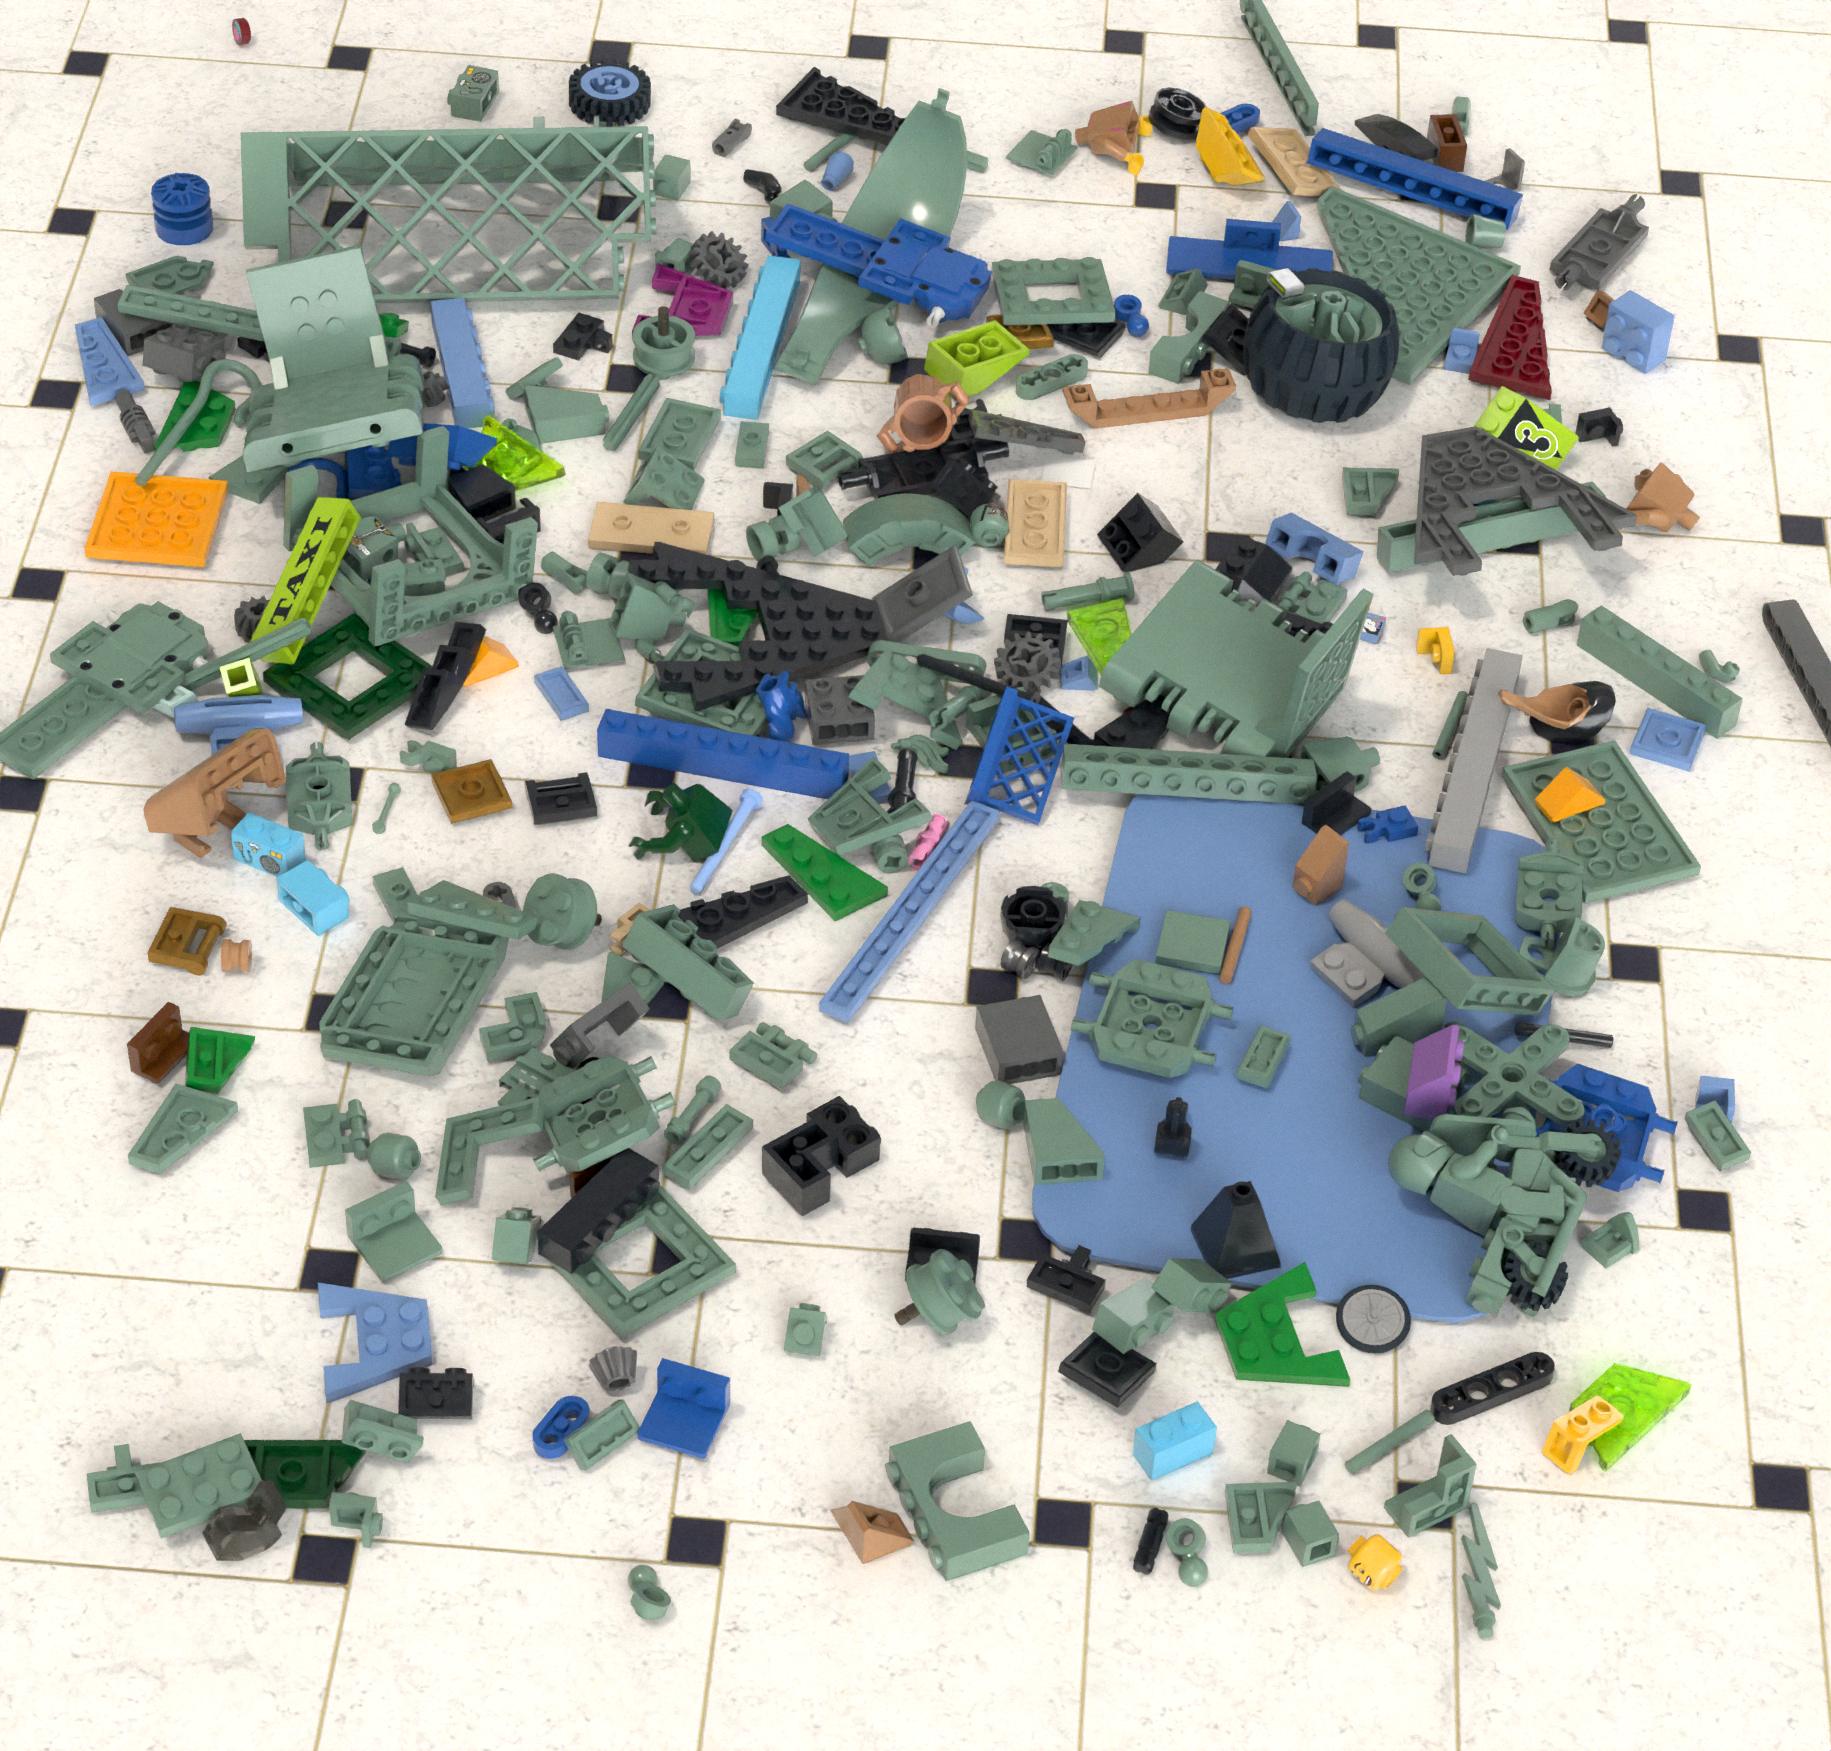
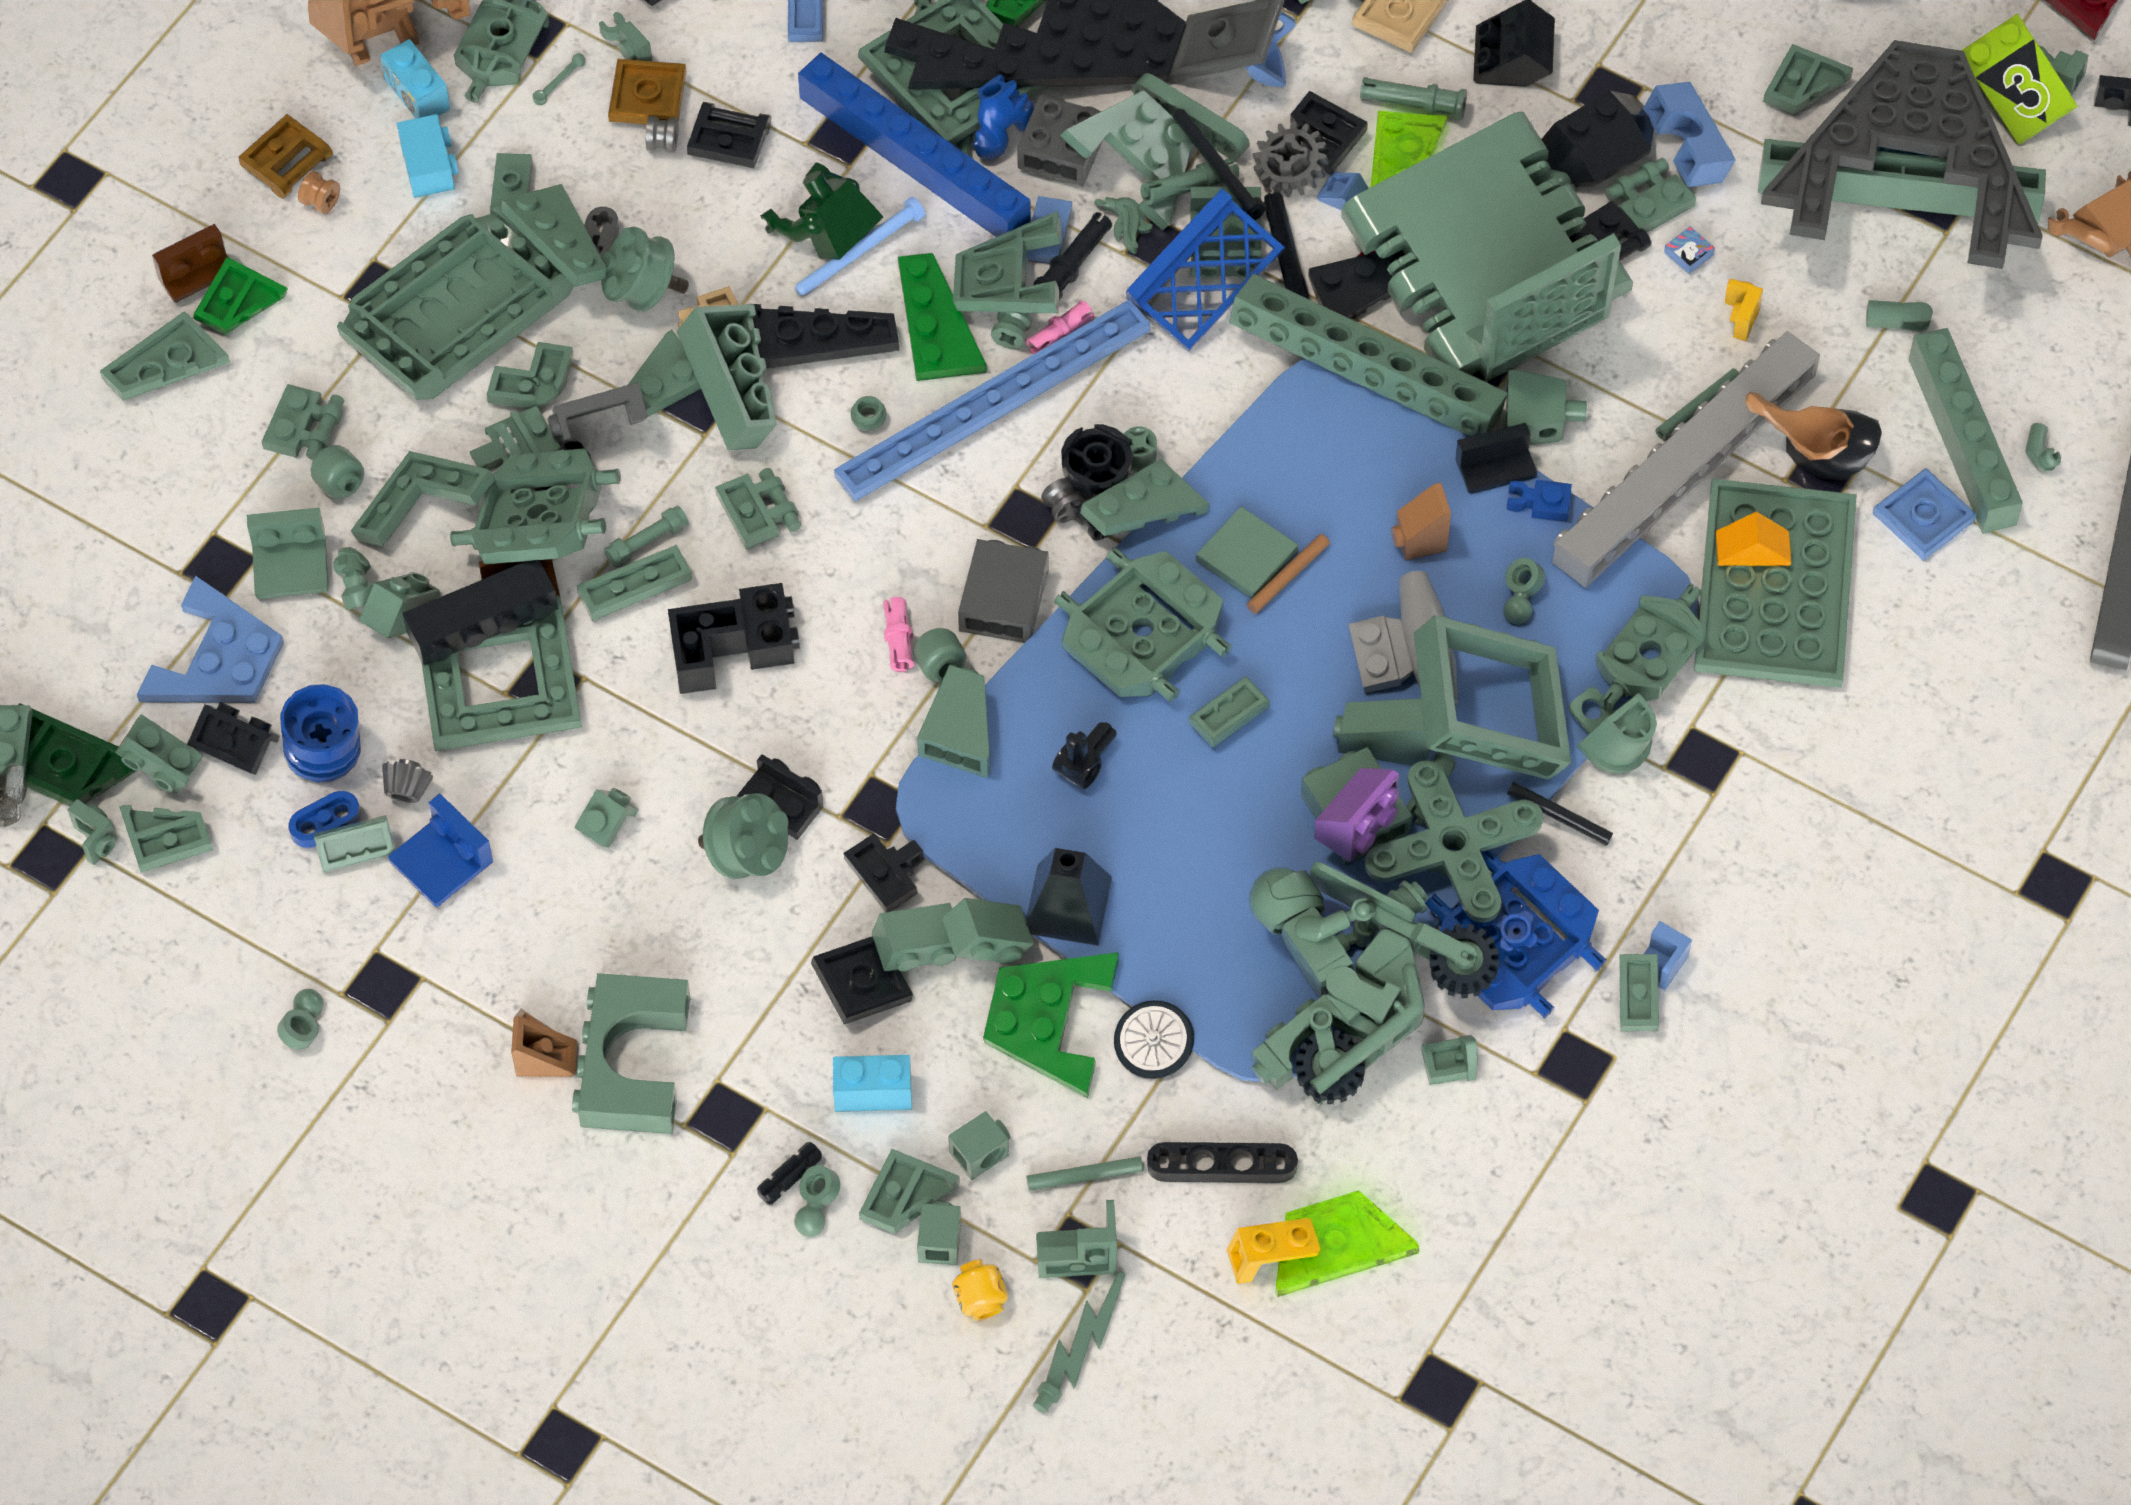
camera: 30 degrees right, 15 degrees up
(424, 1496) = (164, 835): none -> sand green wing
(459, 1222) = (352, 567): none -> sand green arm
(505, 815) = (661, 133): none -> flat silver wheel
(519, 1356) = (315, 716): none -> blue wheel
(815, 954) = (868, 405): none -> sand green plate
(953, 1104) = (898, 634): none -> bright pink pin

